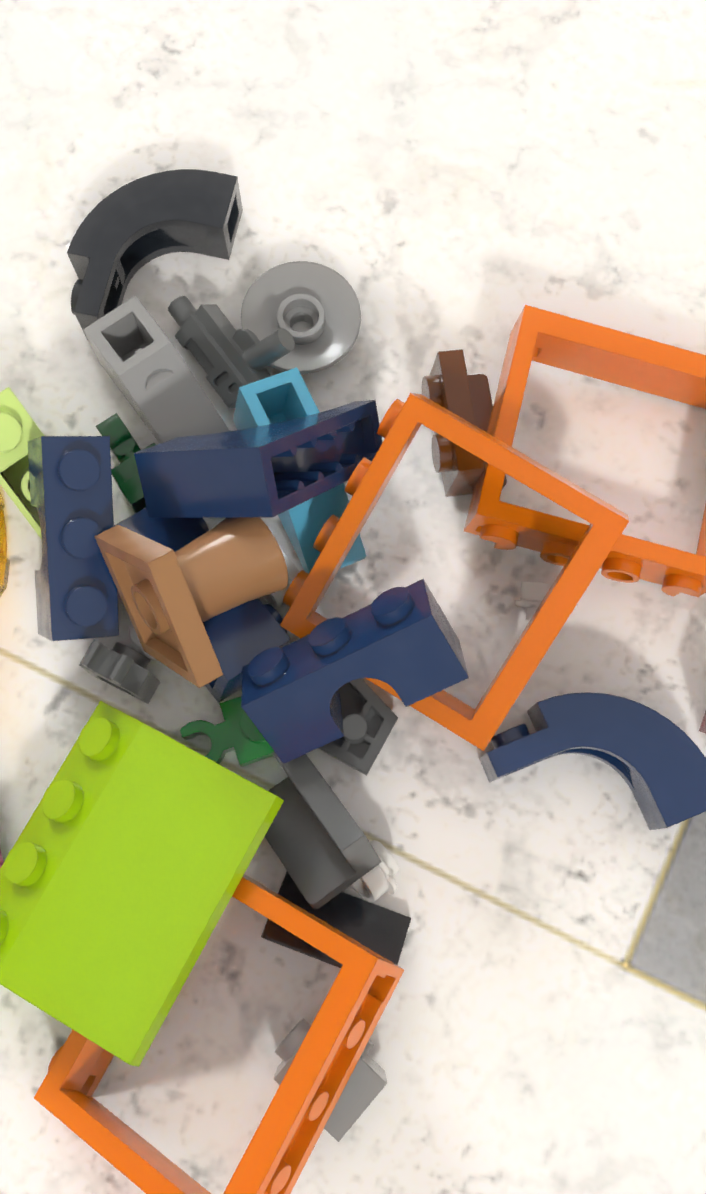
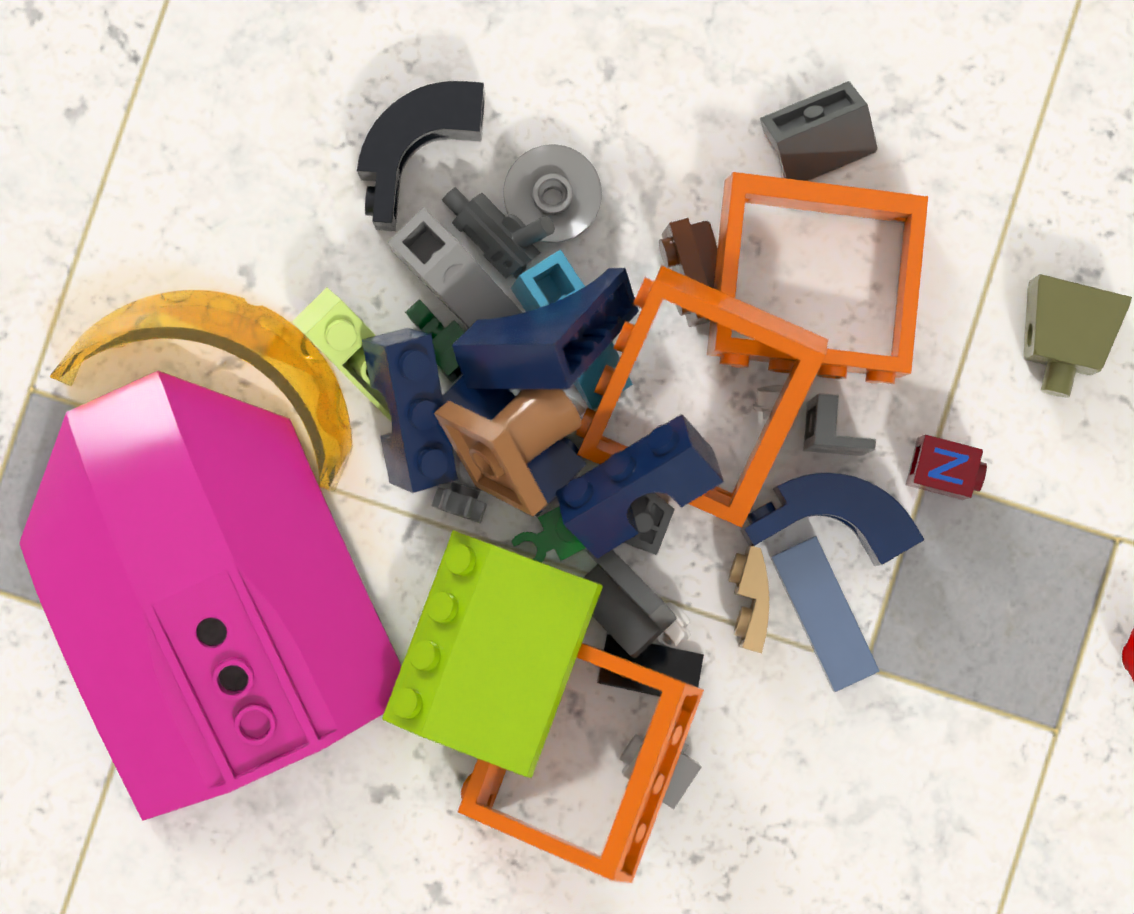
camera: 10 degrees left, 10 degrees up
(489, 830) = (751, 582): none -> tan slope
(580, 888) = (824, 614): none -> sand blue tile
(604, 642) = (821, 429): none -> dark grey panel
(637, 292) = (821, 132): none -> dark grey panel

